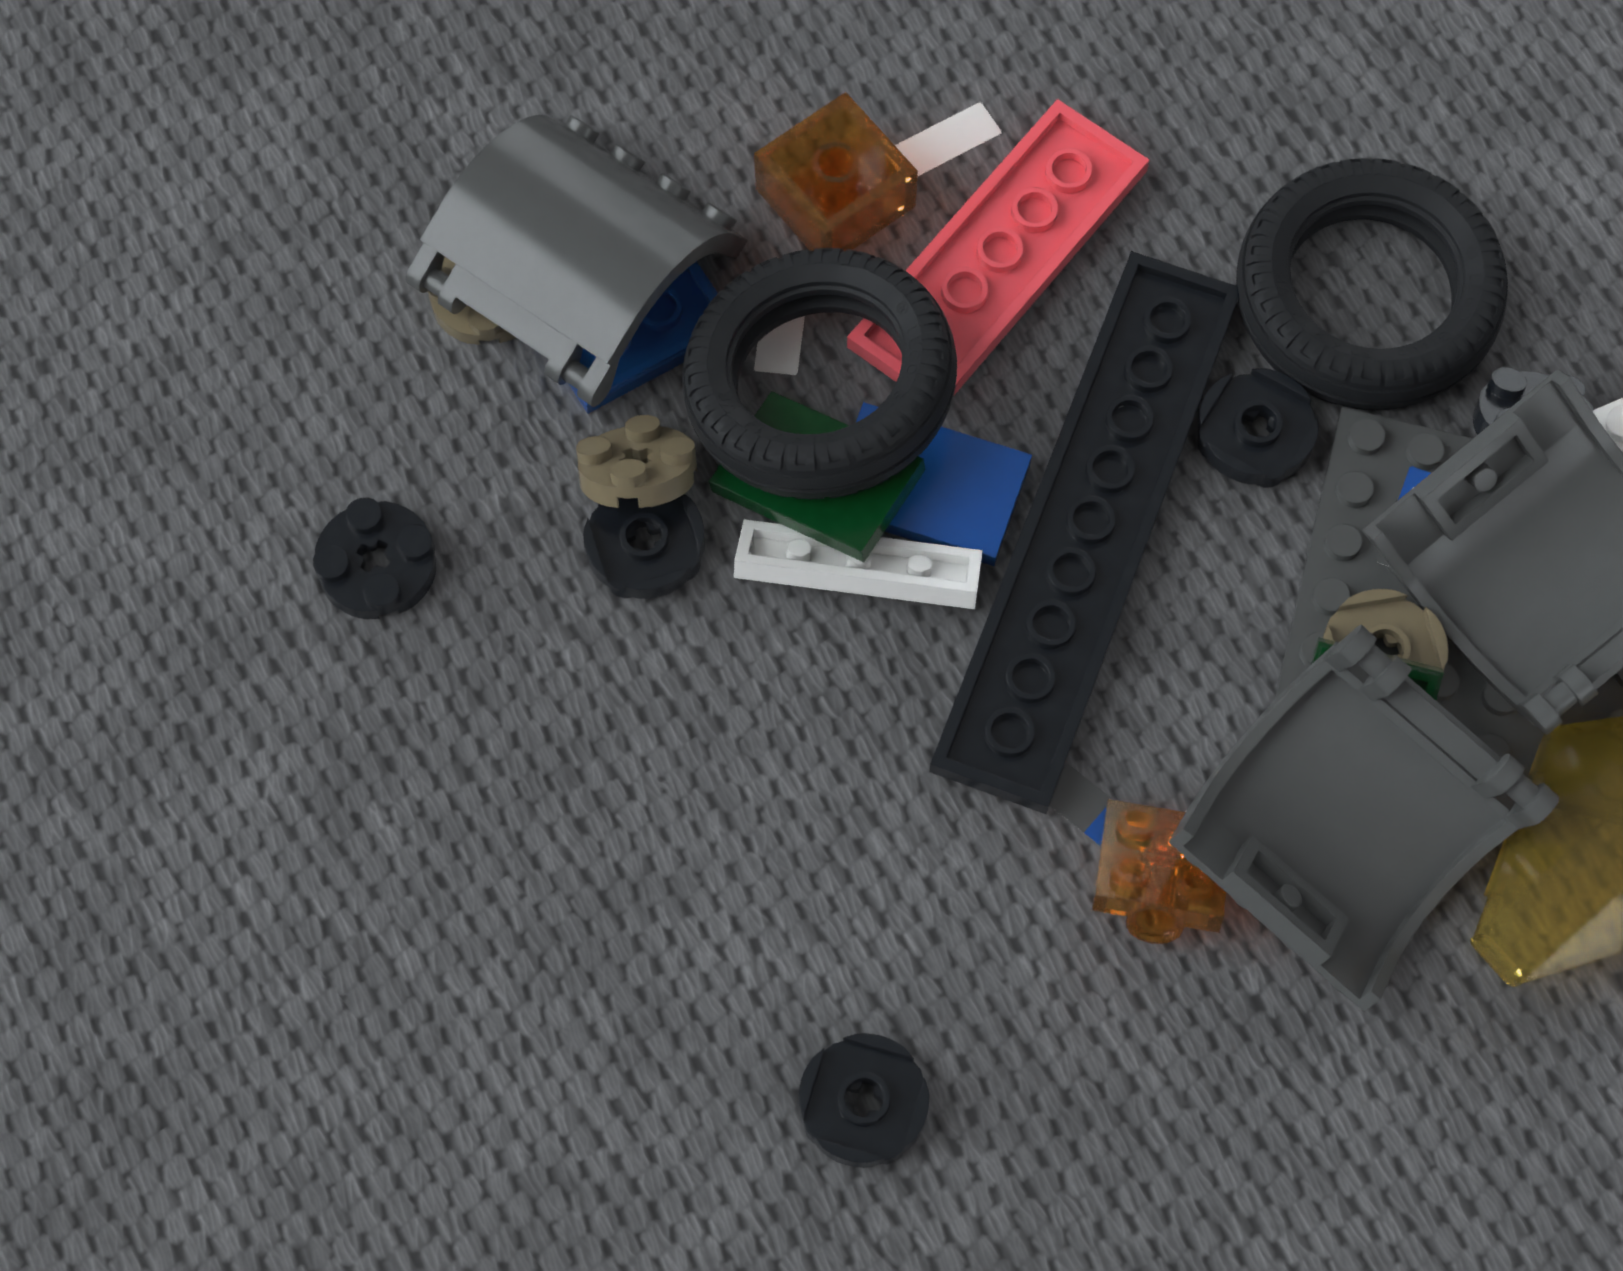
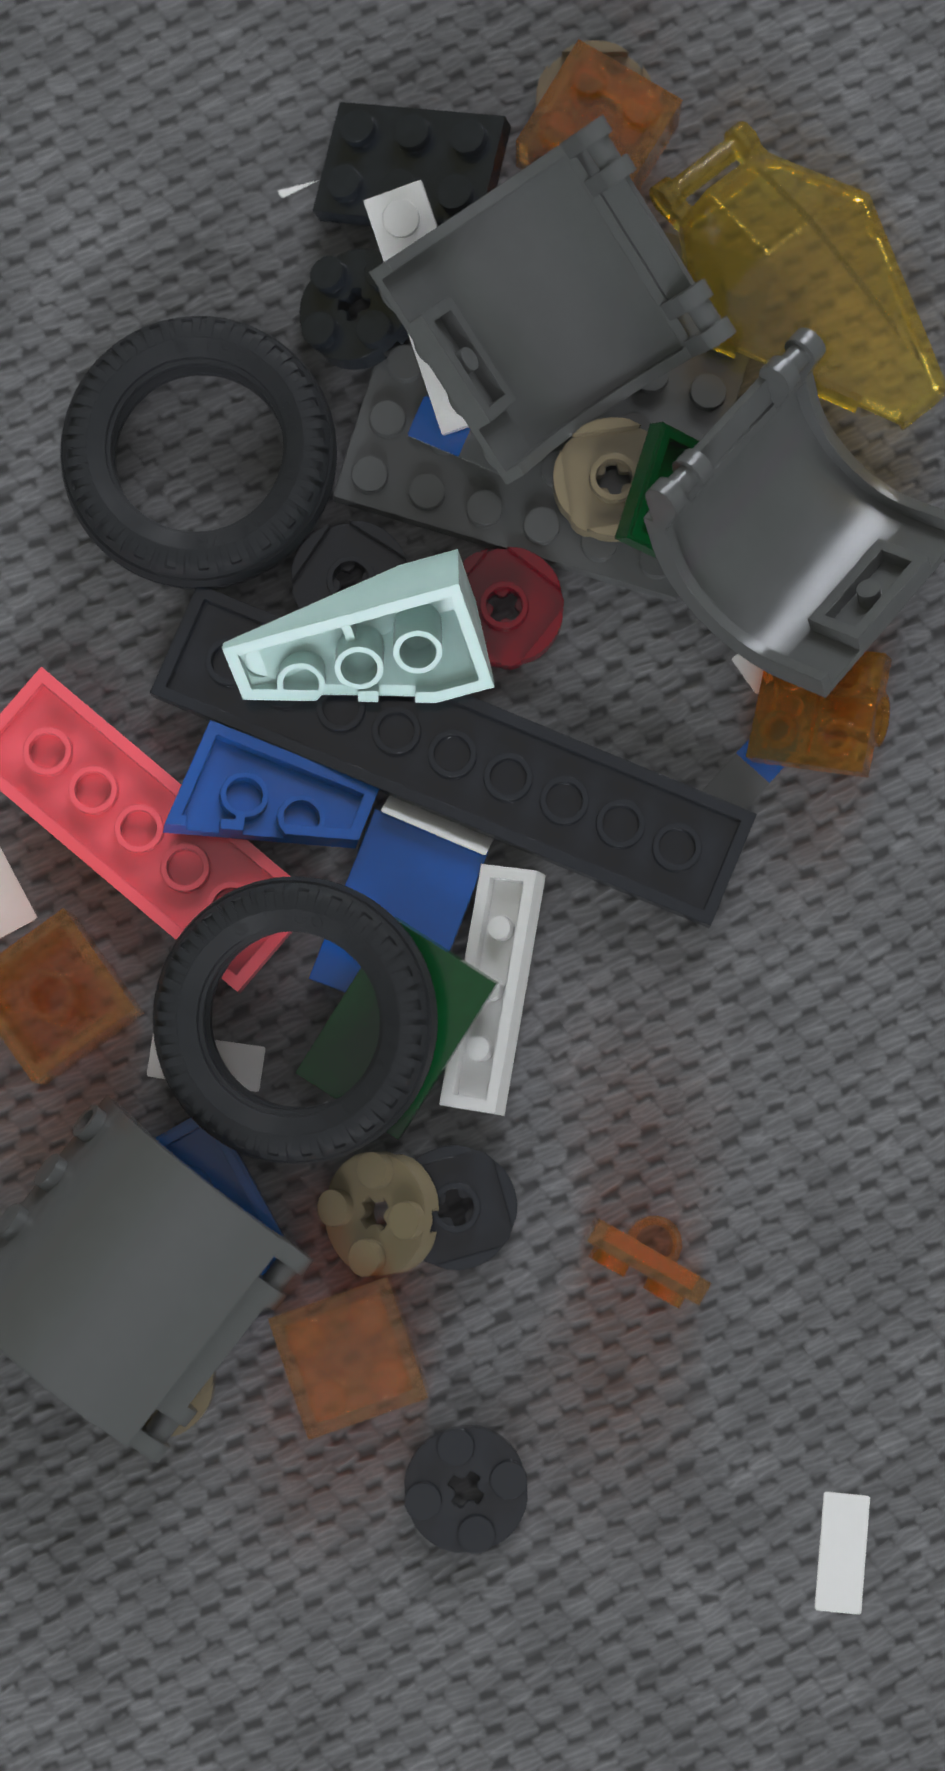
camera: 85 degrees left, 15 degrees up
(301, 916) = (842, 1553): none -> white sticker
(502, 444) = (349, 1357): none -> clear orange brick
(600, 683) = (665, 1276): none -> clear orange plate
(1018, 511) = (437, 825): none -> white sticker
(1039, 353) = (267, 794): none -> blue wing
(1202, 447) = (386, 636): none -> light aqua wedge
(1235, 535) = (538, 604): none -> dark red plate

